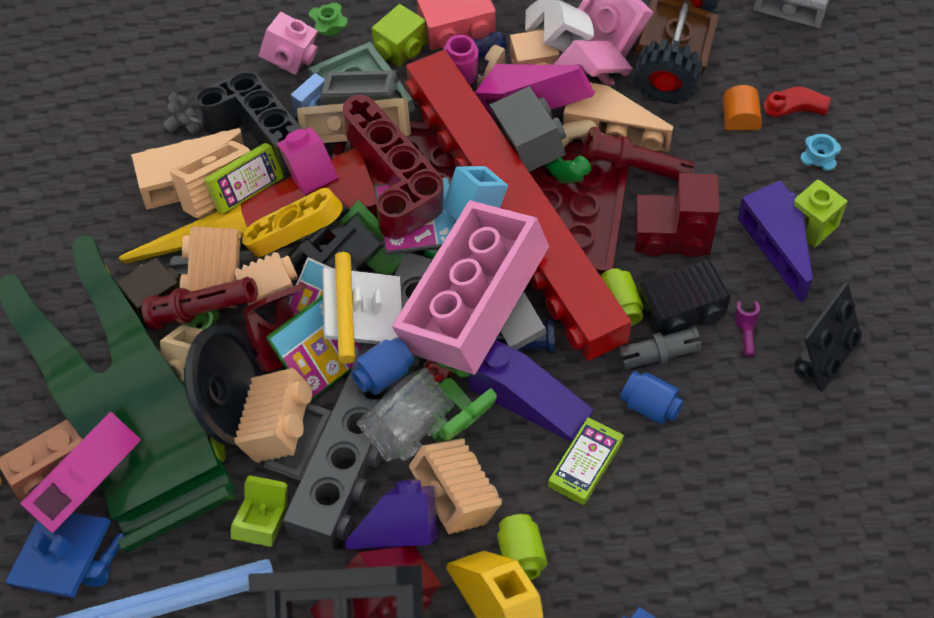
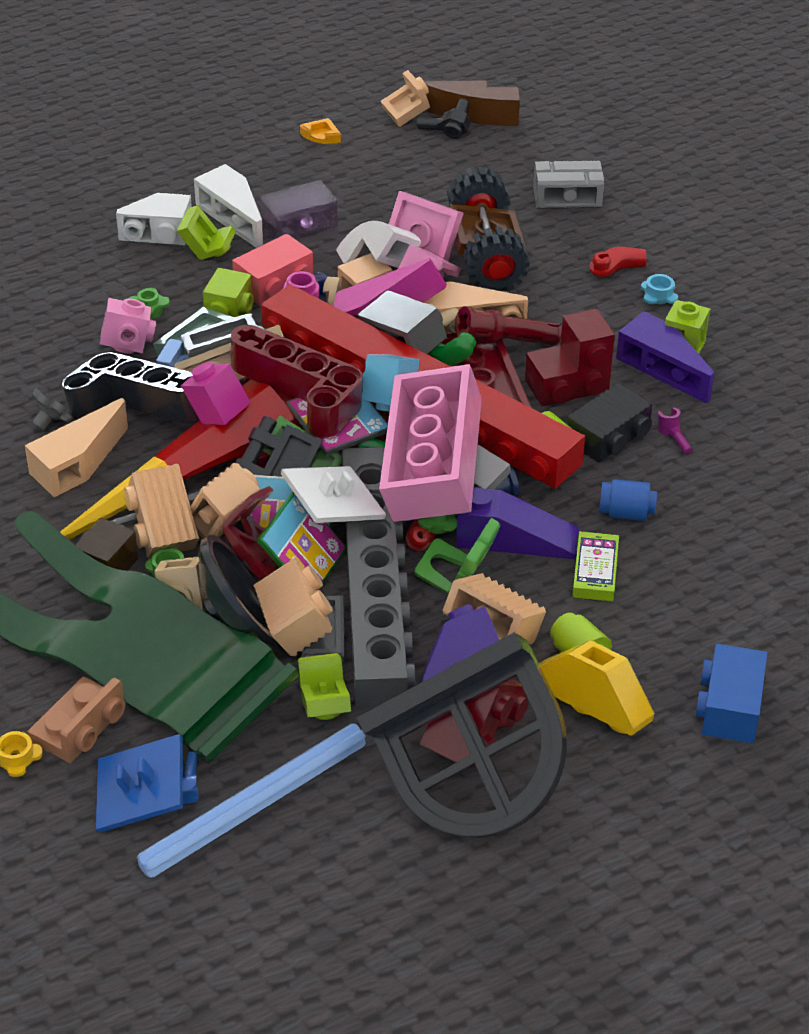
camera: 25 degrees left, 15 degrees down
(80, 472) = (131, 707): dark pink slope -> none
(184, 304) = (159, 540): dark red pin -> none
(190, 177) = (121, 444): light nougat brick -> none
(244, 178) = (152, 432): tile -> none
(292, 222) = (227, 447): yellow beam -> none
(344, 300) = (322, 492): yellow bar -> none
(382, 365) = (380, 530): blue brick -> none
(405, 415) = (423, 566): clear brick -> none
(659, 348) = (610, 464): dark grey pin -> none
(741, 108) = (572, 276): orange brick -> none
(830, 340) = (754, 415): black hinge -> none

